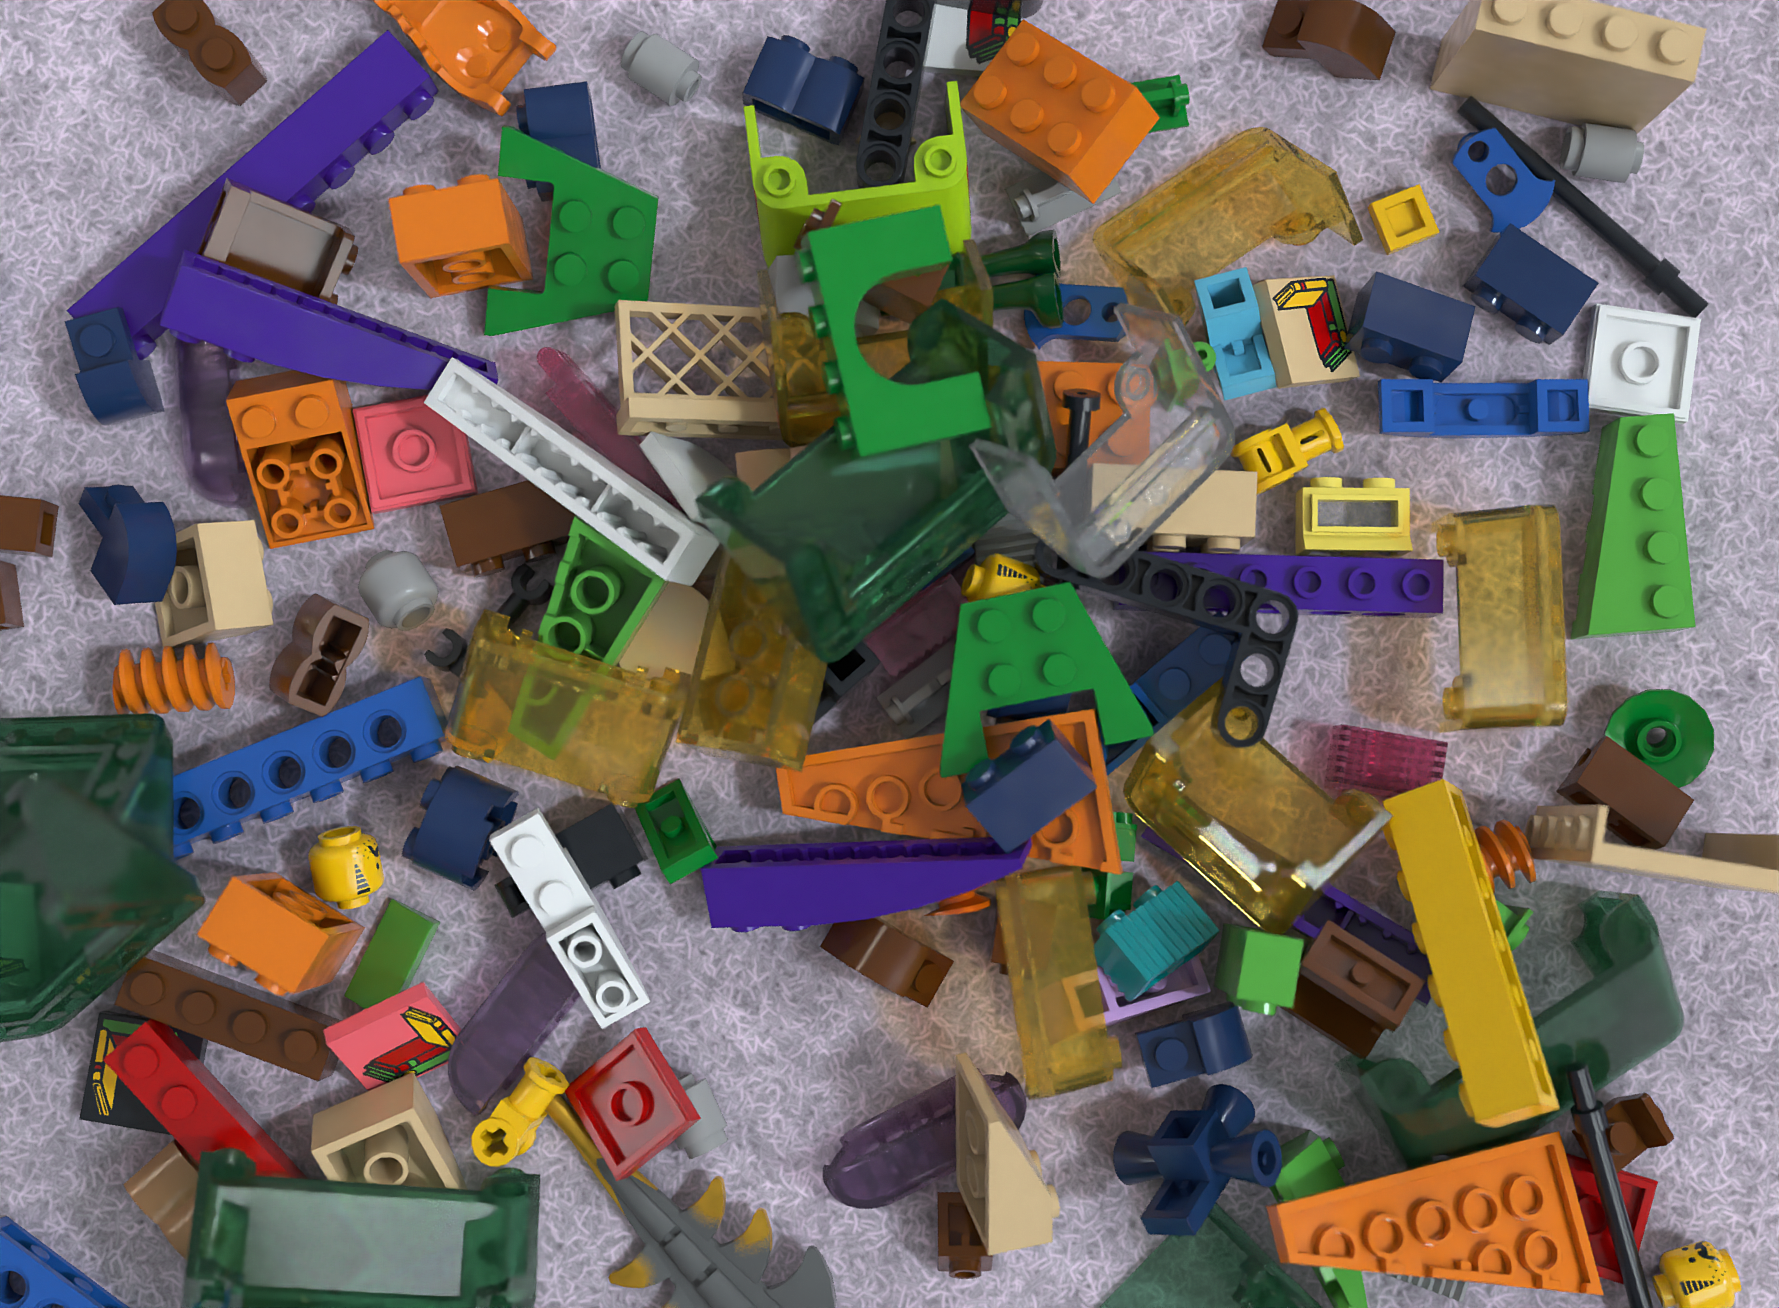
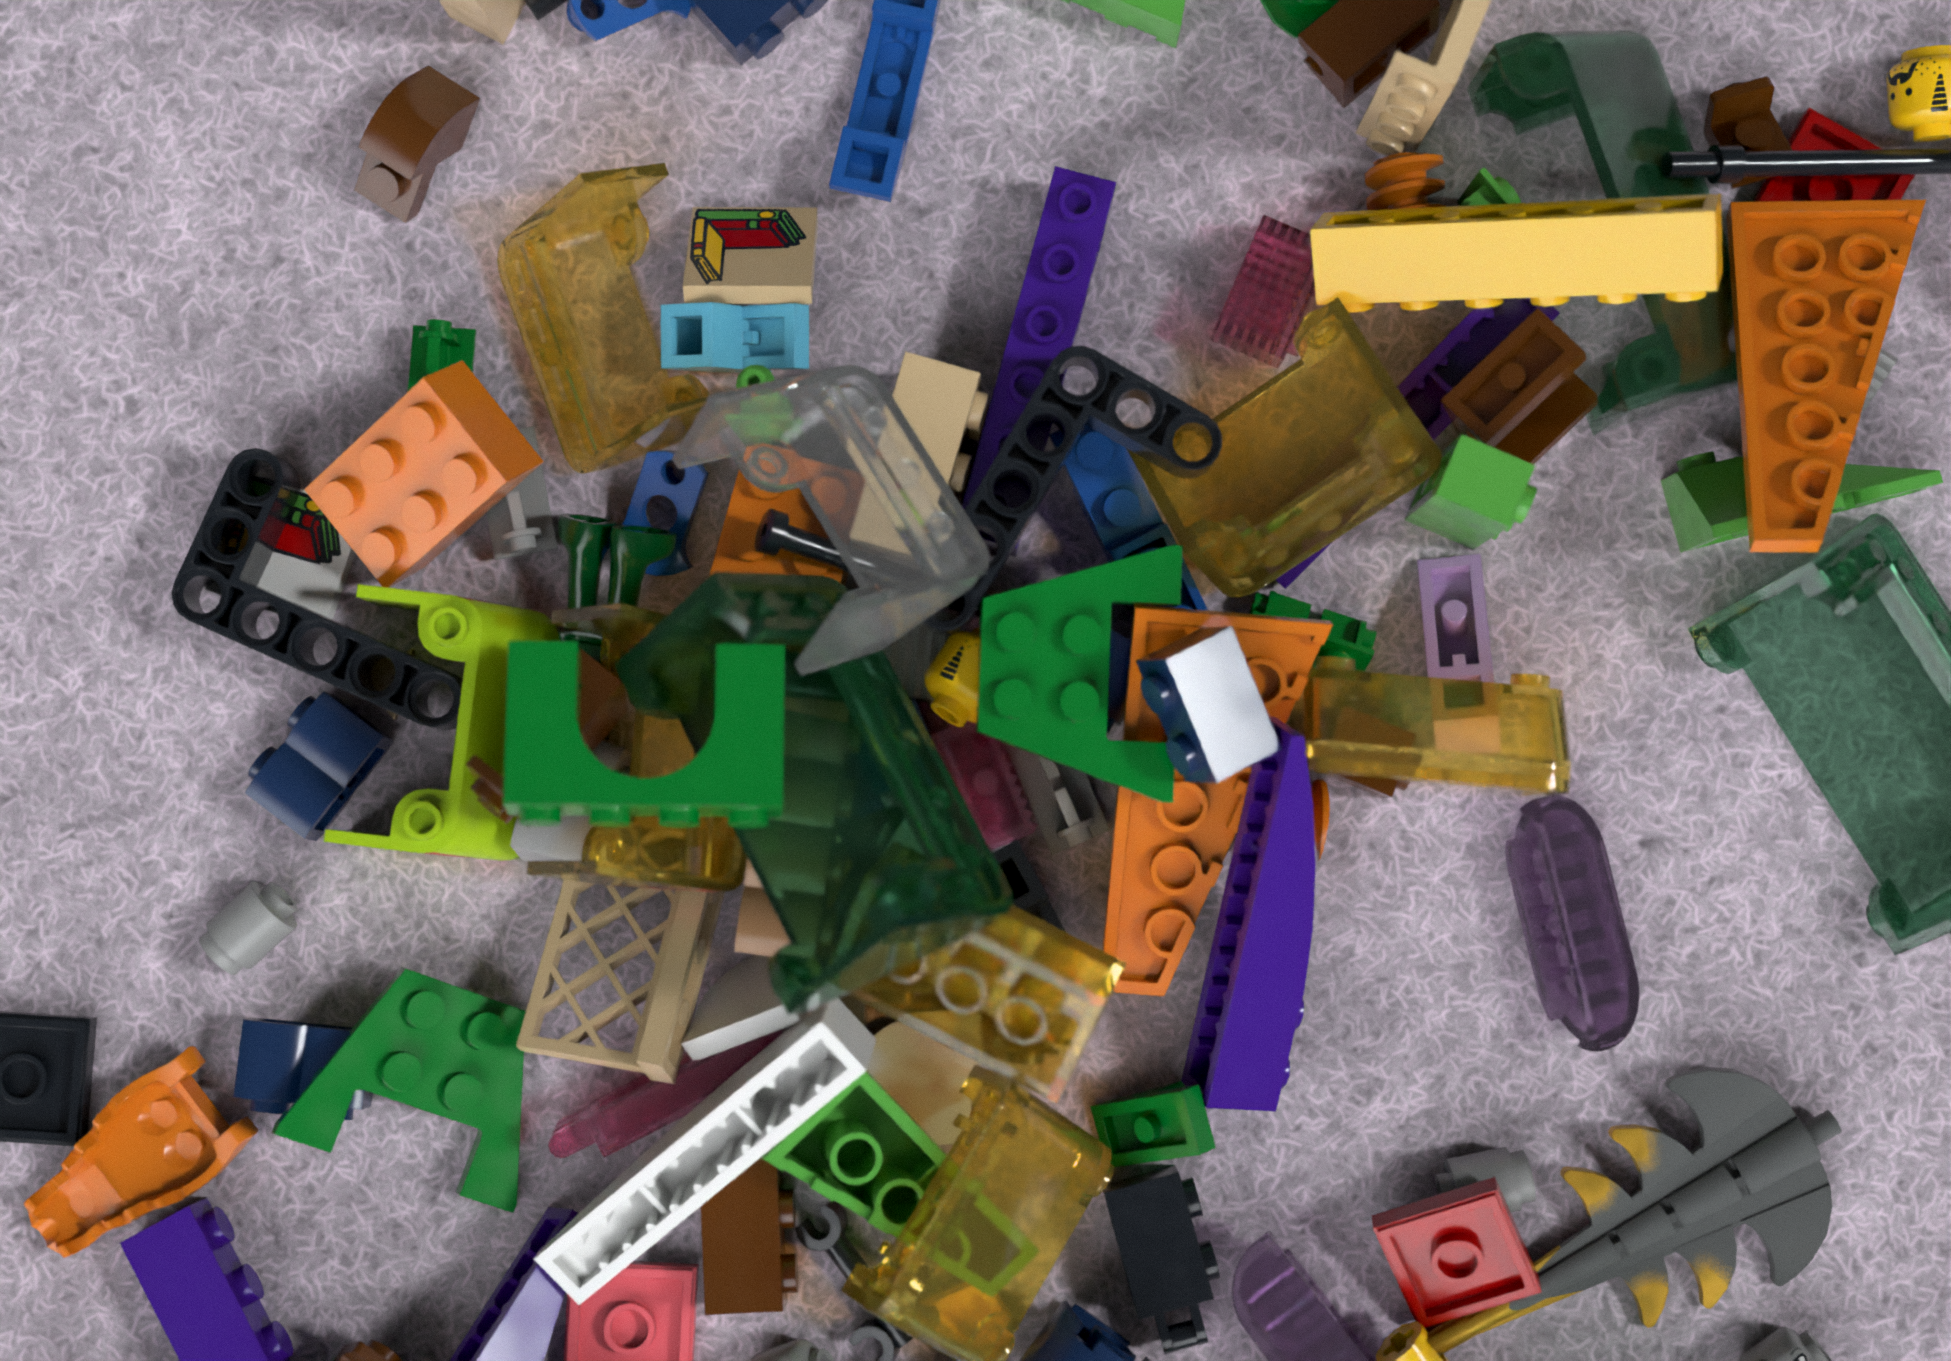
camera: 70 degrees left, 0 degrees up
(460, 236) = (392, 1215): orange brick -> none
(570, 917) = (1228, 1274): white slope -> none
(889, 957) = (1359, 913): reddish brown brick -> none
(958, 1239) = (1691, 902): reddish brown bracket -> none
(997, 1171) = (1633, 847): tan slope -> none
(1152, 939) = (1409, 604): teal brick -> none
(1197, 1159) = (1674, 617): dark blue brick -> none
(1198, 1044) = (1540, 577): dark blue brick -> none
(1279, 452) = (883, 321): yellow connector -> none
(1352, 518) = (980, 257): light yellow window -> none
(1403, 219) = (647, 112): yellow tile -> none
(1409, 327) = (776, 137): dark blue brick -> none
(1506, 619) = (1143, 111): clear yellow windscreen -> none

